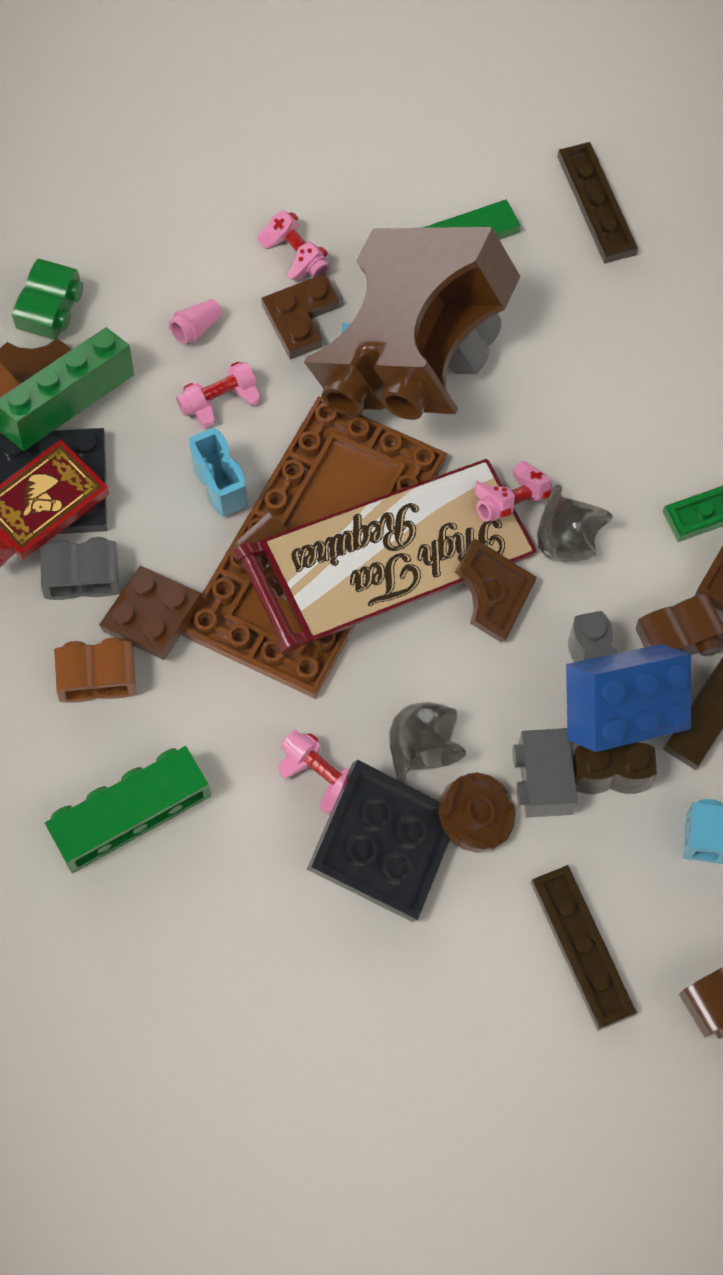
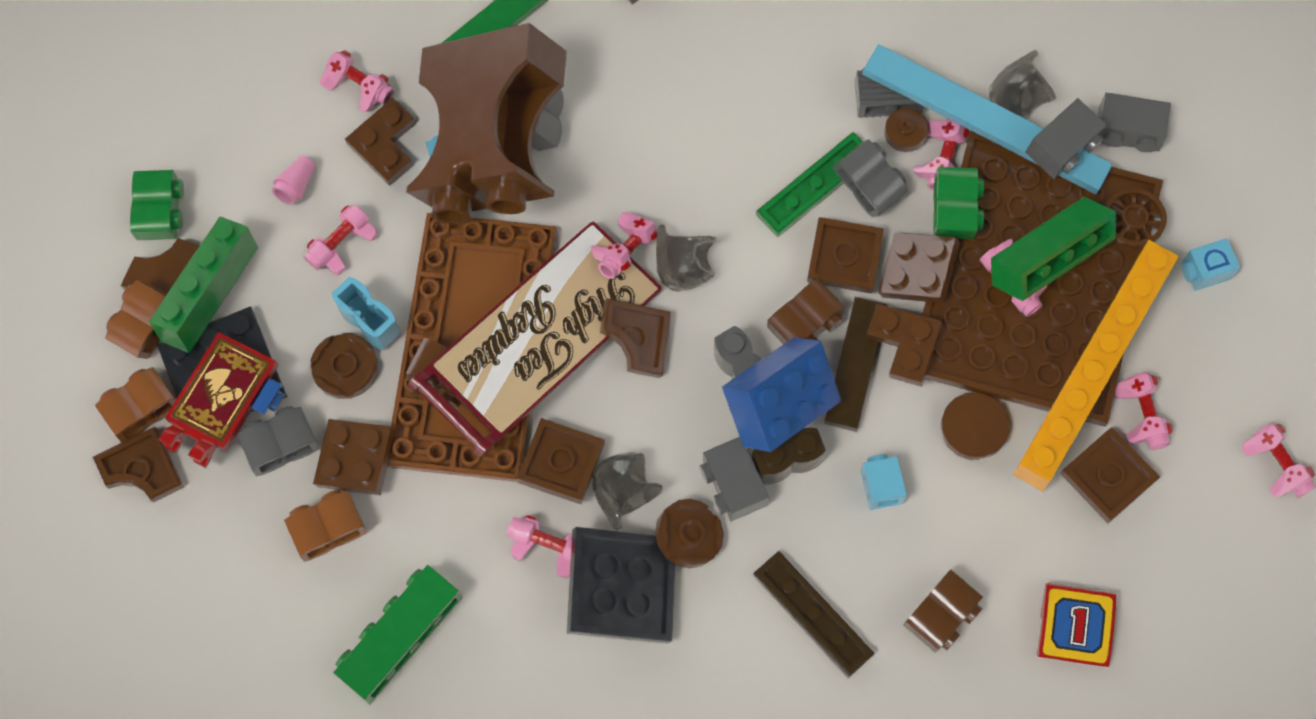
camera: 15 degrees left, 5 degrees up
(86, 520) = (269, 397): none -> blue plate
(176, 519) = (344, 366): none -> reddish brown tile
(366, 690) = (560, 461): none -> reddish brown plate

